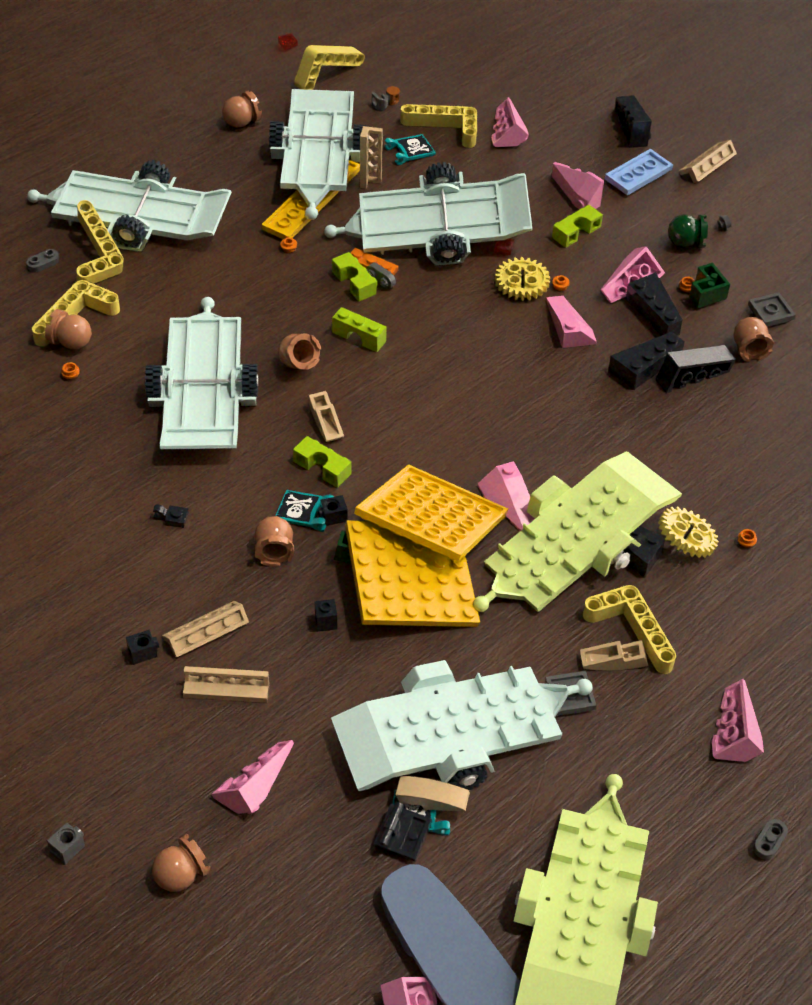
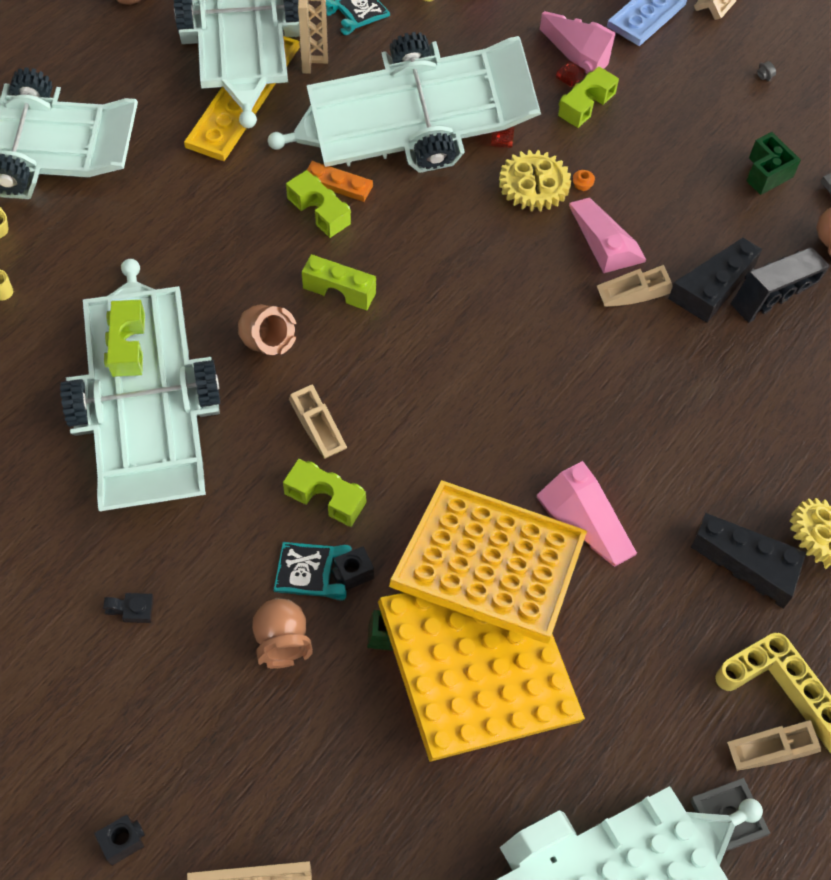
camera: 10 degrees left, 10 degrees up
(194, 349) = (124, 320): none -> lime arch
(206, 628) = (209, 791): tan fence -> none
(288, 245) = (224, 166): orange plate -> none
(325, 615) = (373, 743): black brick -> none
(383, 276) = (354, 198): dark grey plate -> none
(567, 208) = (570, 73): none -> clear red plate
(573, 537) = (684, 565): yellowish green piece -> none
(583, 358) = (636, 287): none -> tan slope
(634, 266) = (673, 155): bright pink wedge -> none
(654, 304) = (710, 199): black wedge -> none
(685, 284) = (741, 163): orange plate -> none
(687, 230) = (729, 88): dark green tile -> none

